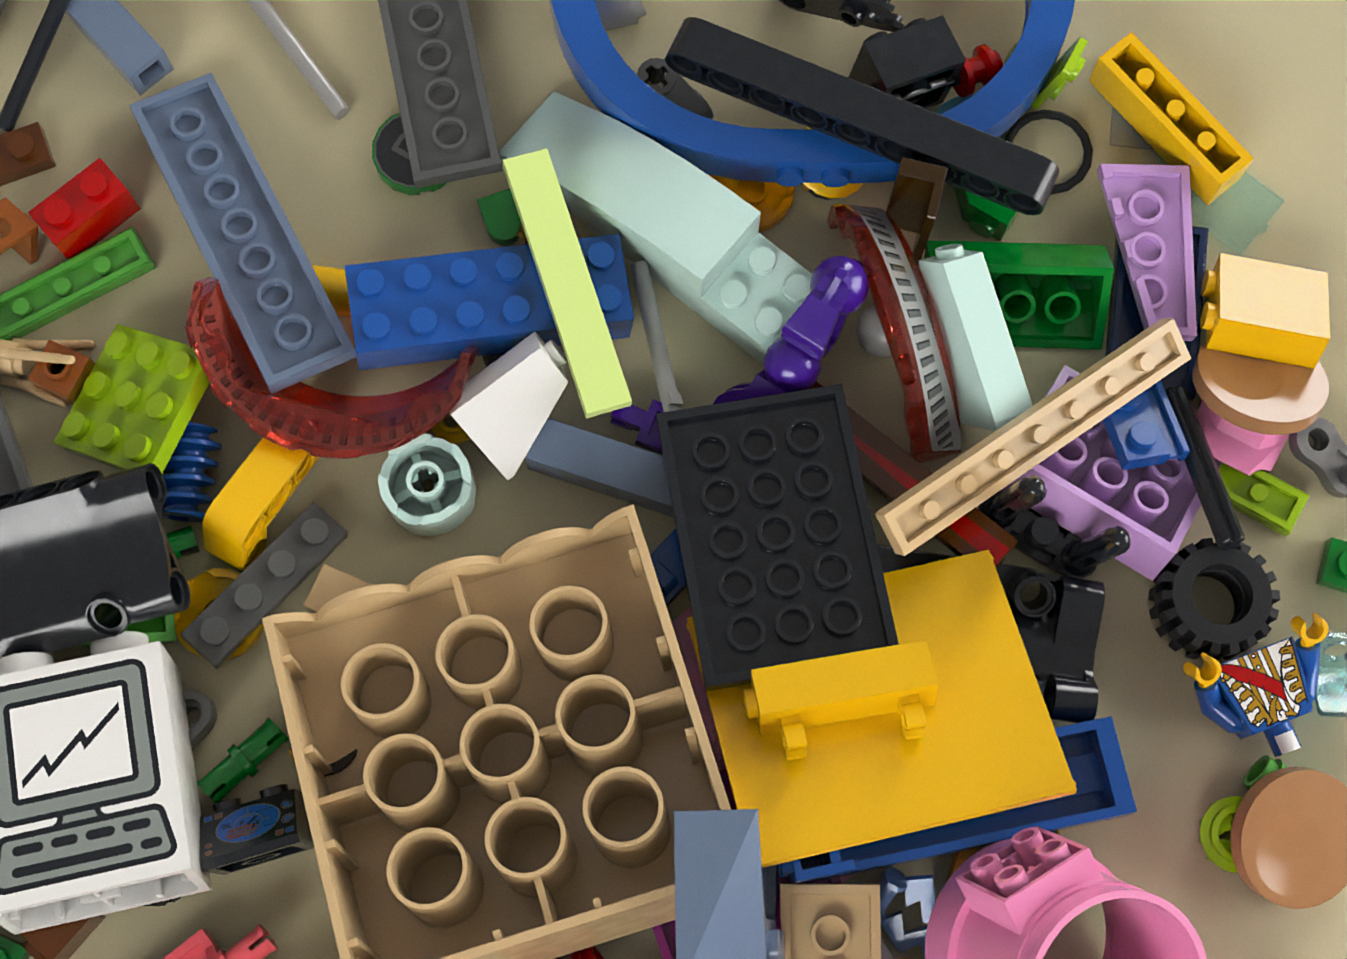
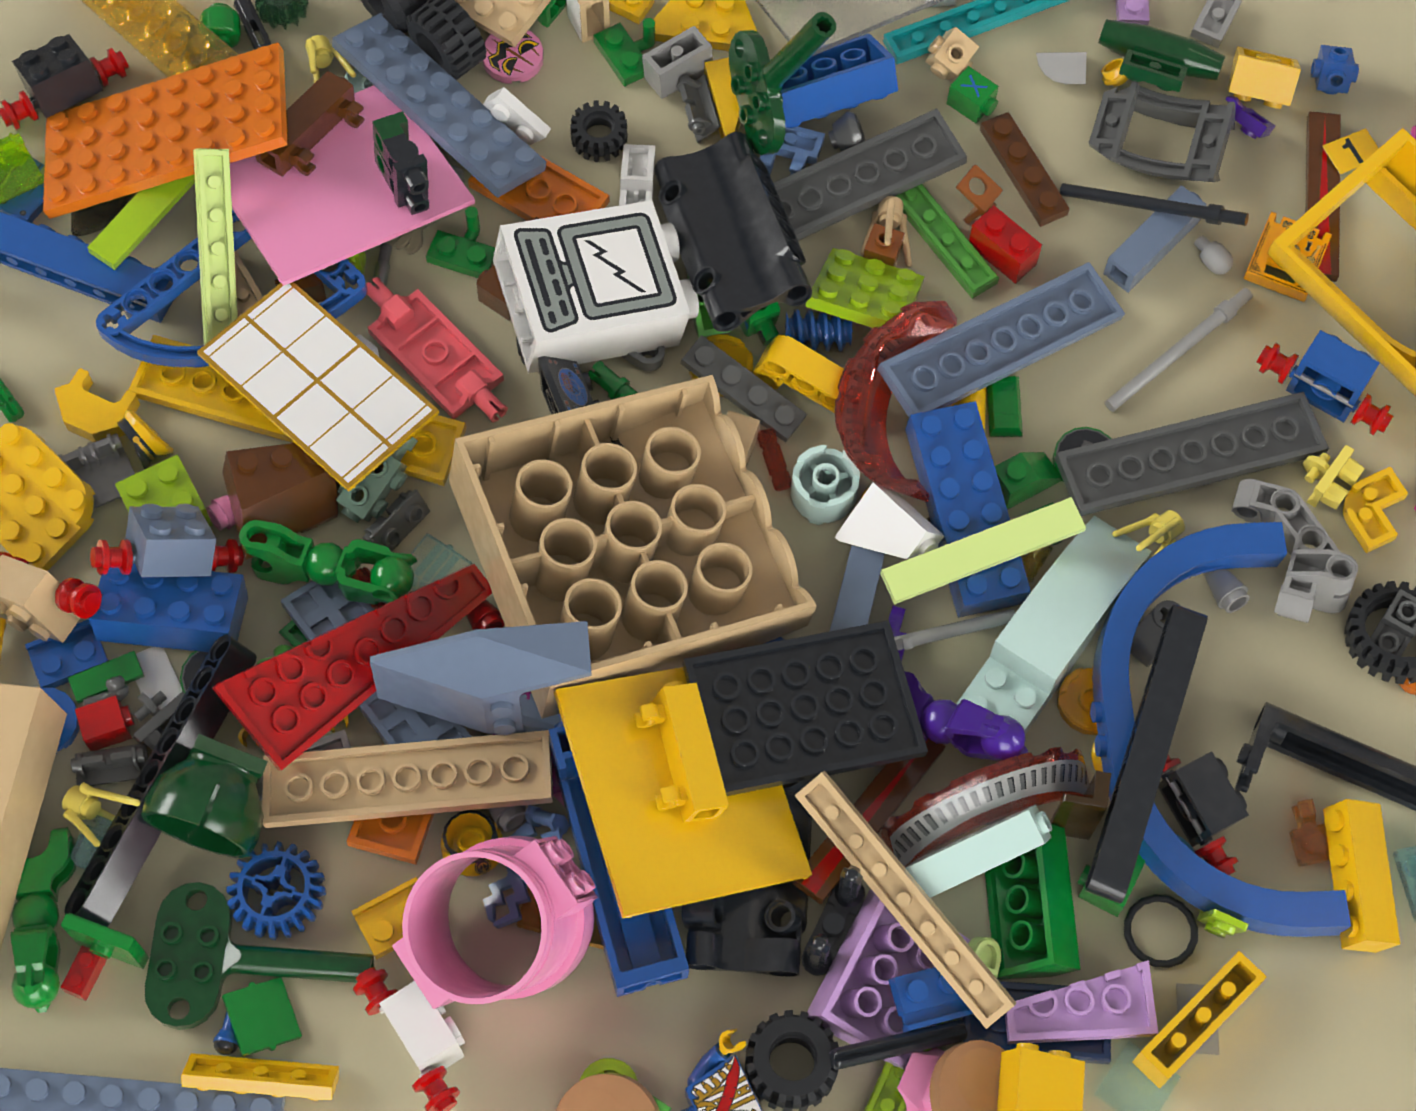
camera: 85 degrees right, 10 degrees down
(334, 243) = (1004, 408): none -> green tile
(375, 552) = (774, 459): none -> clear red axle
(436, 223) = (1025, 476): none -> green slope
(531, 71) = (1162, 529): none -> light yellow plant
(1079, 354) = (988, 951): none -> yellowish green tile

